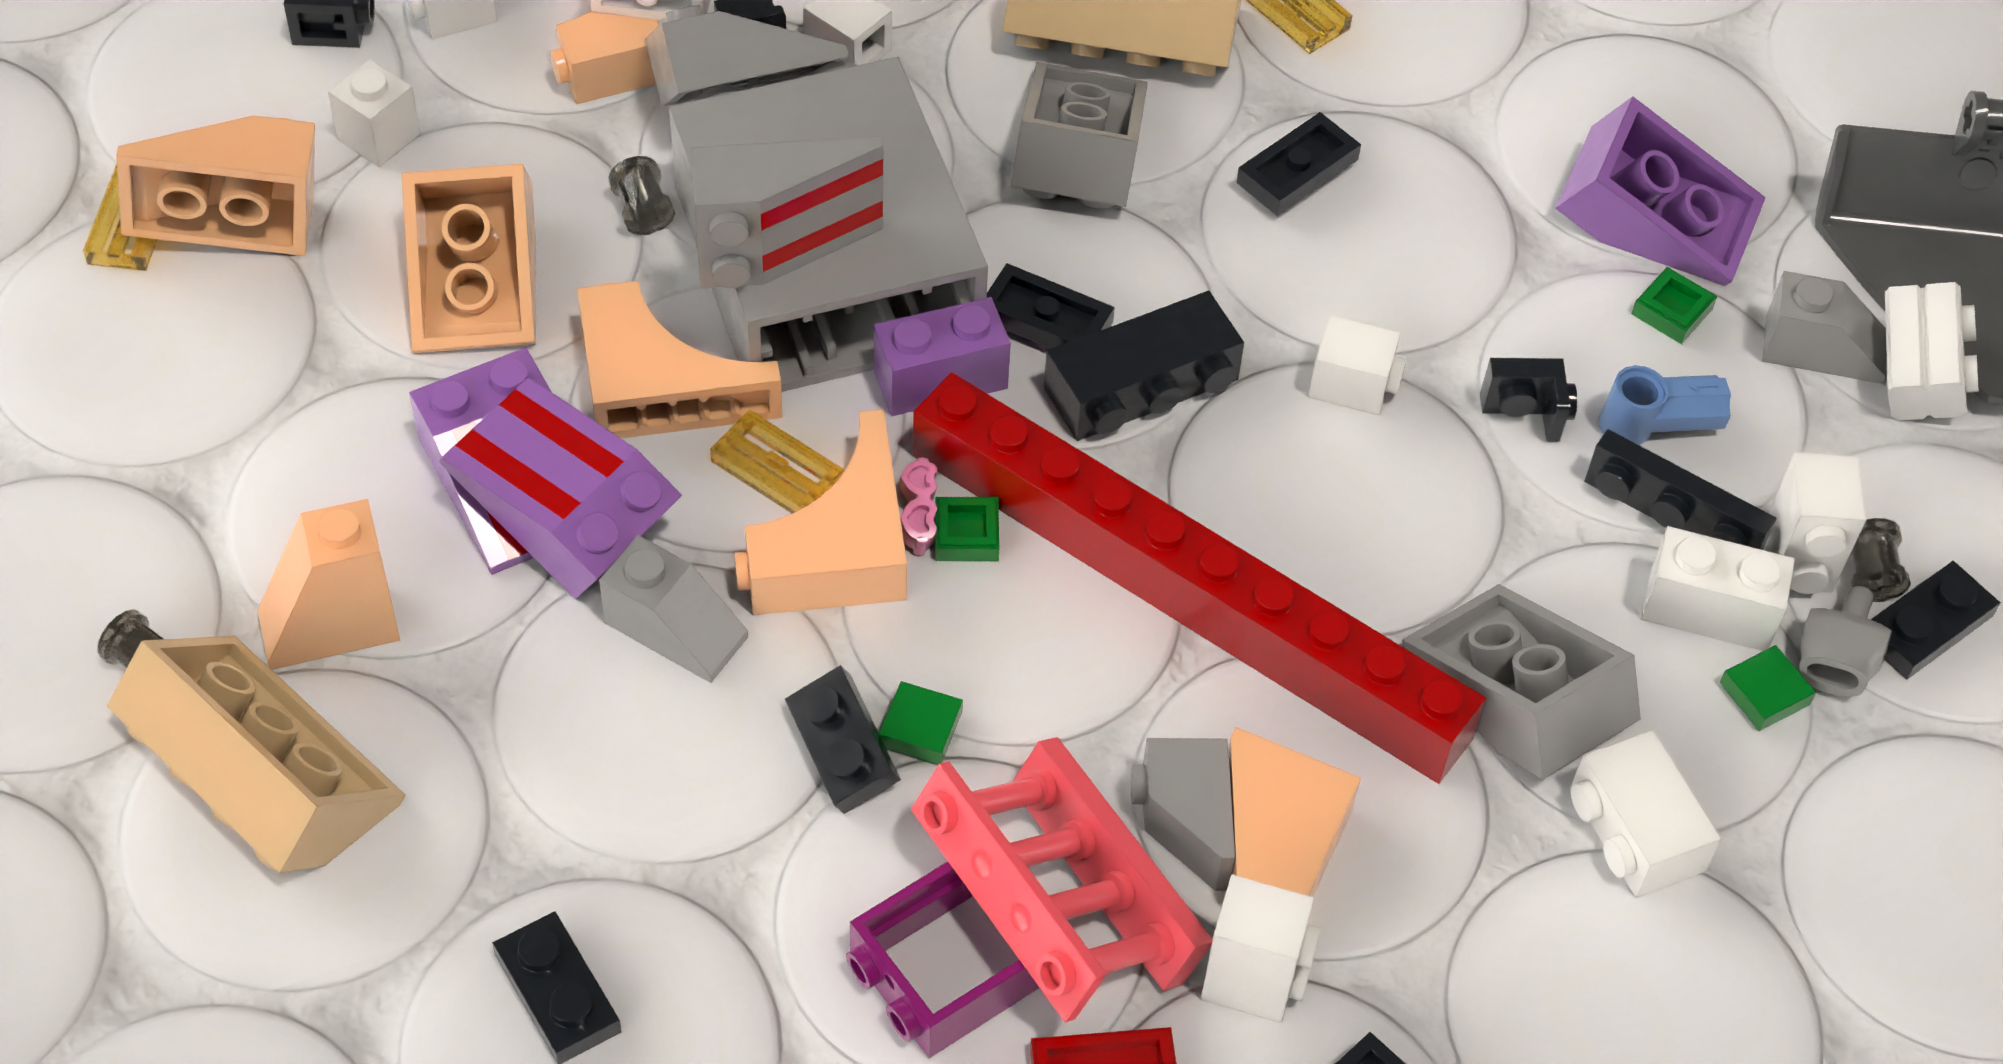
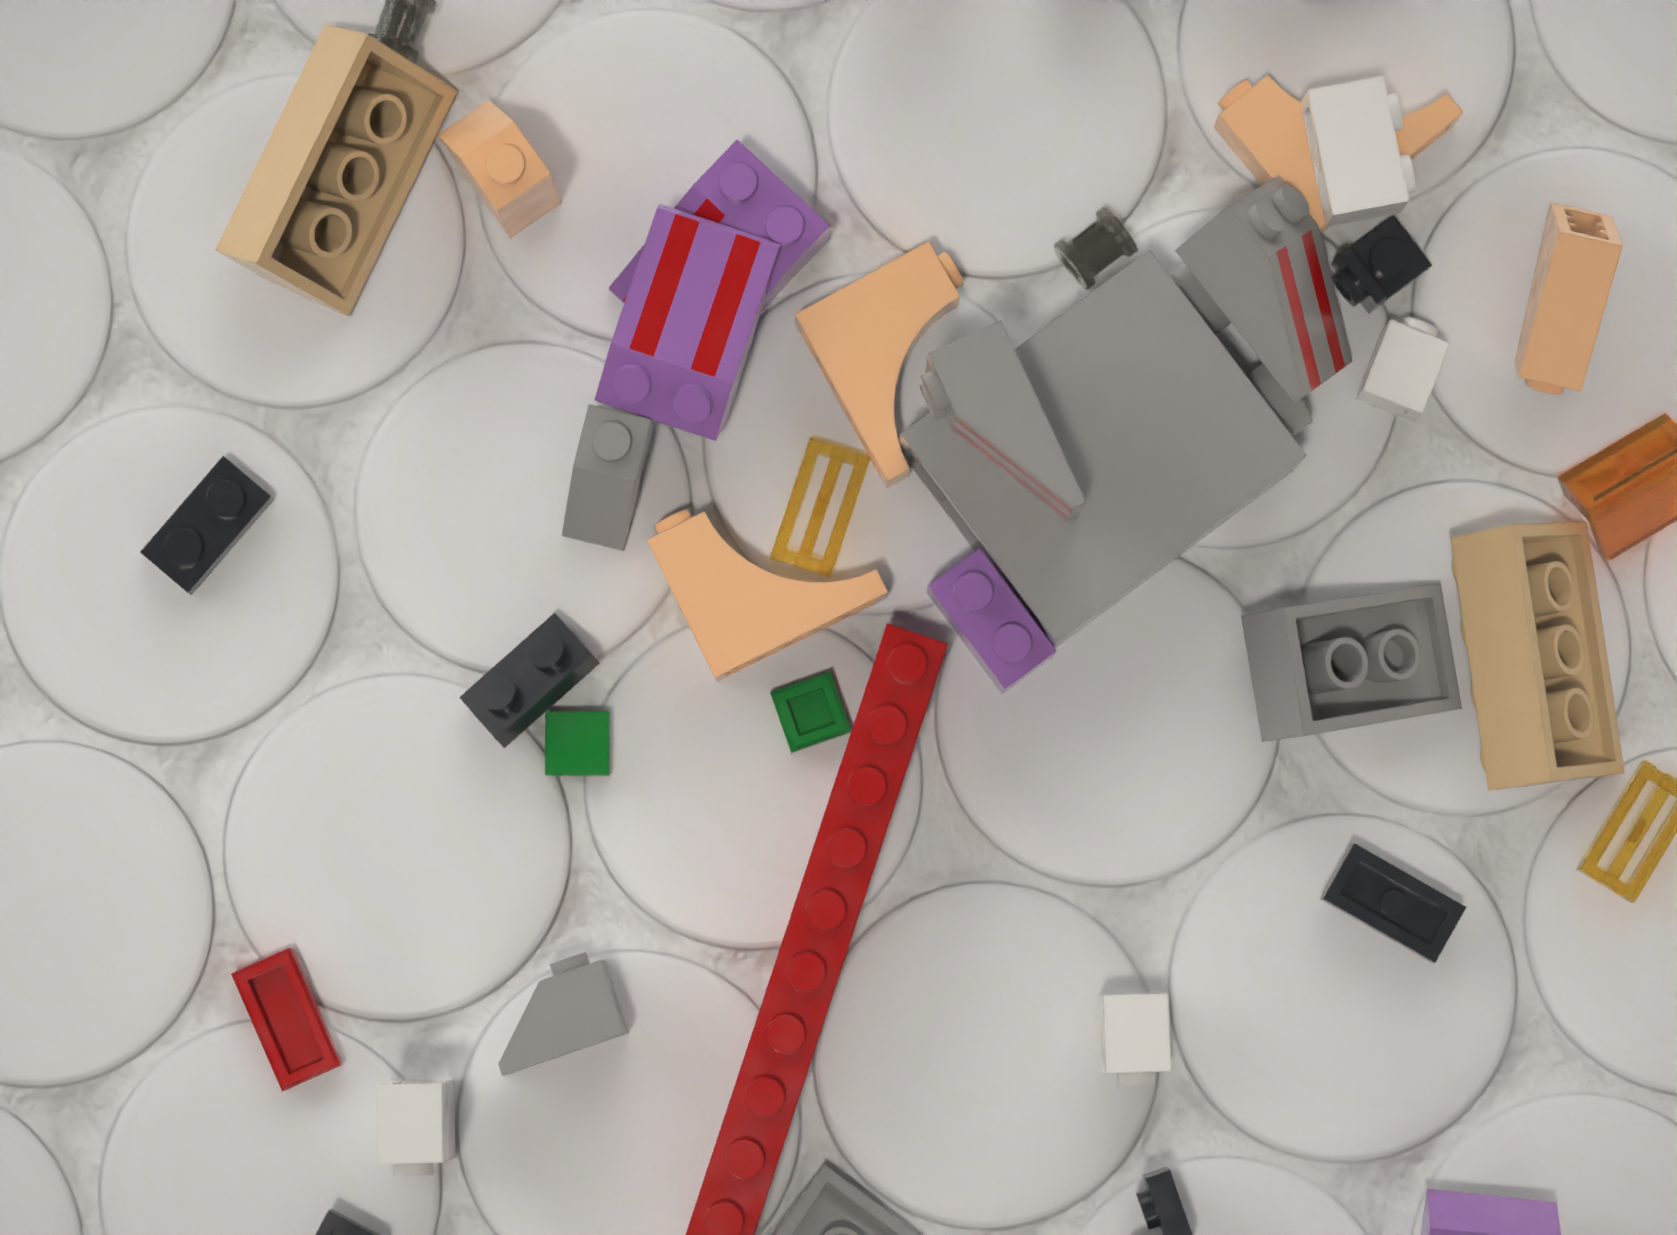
camera: 75 degrees right, 30 degrees up
(470, 257) = (948, 116): light nougat slope -> none
(901, 917) = (274, 836): magenta window -> none
(918, 516) = (830, 652): bright pink piece -> none
(1045, 309) = (1094, 705): black plate -> none
(1100, 851) = (454, 983): coral fence -> none
(1143, 365) = (1055, 825): black brick -> none
(1285, 812) = (563, 1108): light nougat slope -> none

